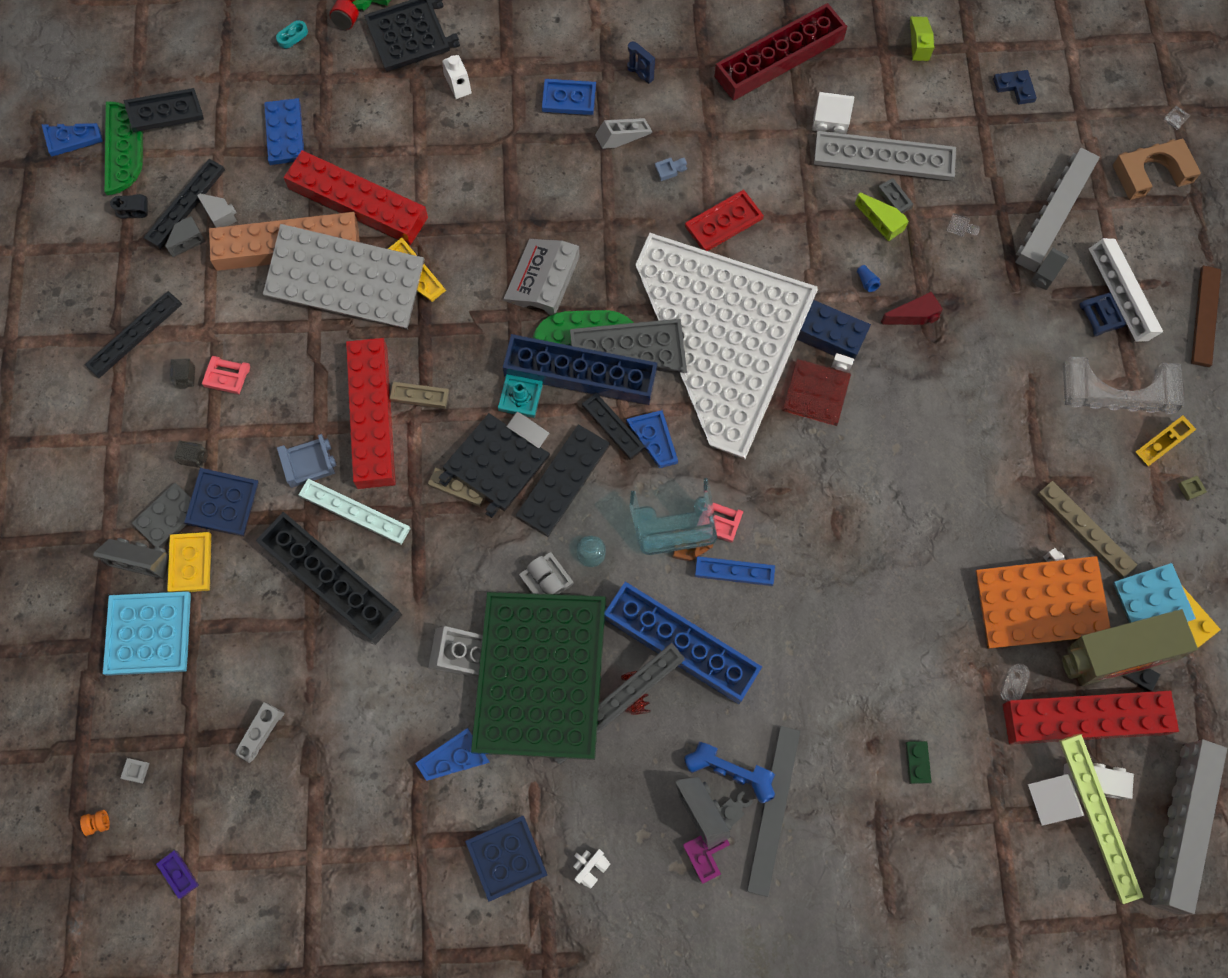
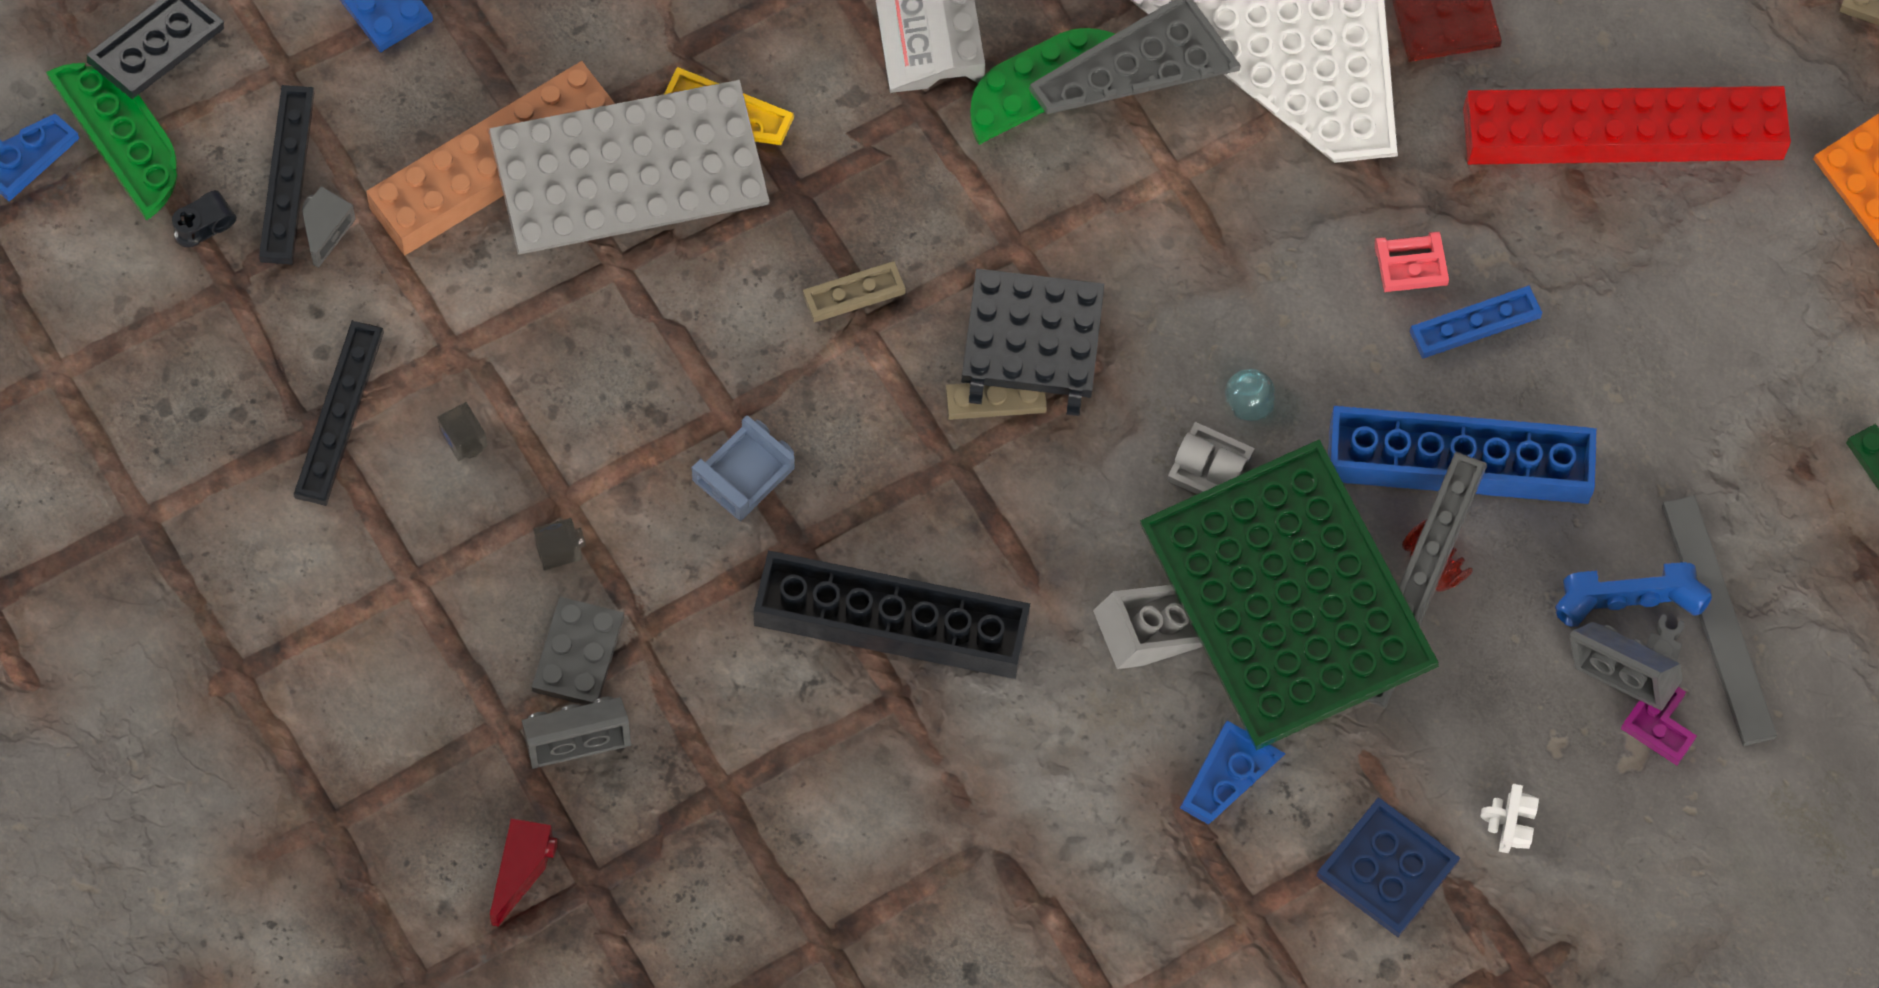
camera: 30 degrees left, 5 degrees down
(65, 614) = (521, 865): none -> dark red slope
(147, 633) = (664, 828): medium azure plate -> none
(189, 562) = (660, 699): yellow plate -> none
(218, 210) = (349, 160): light grey slope -> none
(221, 502) = (655, 588): dark blue plate -> none
(225, 380) = (535, 411): coral plate -> none
(258, 732) = (925, 877): light grey leg -> none
(351, 193) = (554, 36): red brick -> none
(354, 511) = (864, 506): light aqua plate -> none
(370, 413) = (798, 352): red brick -> none
(522, 391) = (1006, 211): teal plate -> none
(527, 429) = (1051, 263): light grey slope -> none
(563, 480) = (1147, 314): black plate -> none
(581, 369) = (1078, 138): dark blue brick -> none
(613, 426) = (1175, 200): black plate -> none
(655, 436) = (1247, 186): blue wing -> none
(675, 531) = (1364, 302): clear light blue windscreen -> none
(691, 554) = (1392, 325): dark orange slope -> none
(881, 502) = (1626, 125): none -> red brick

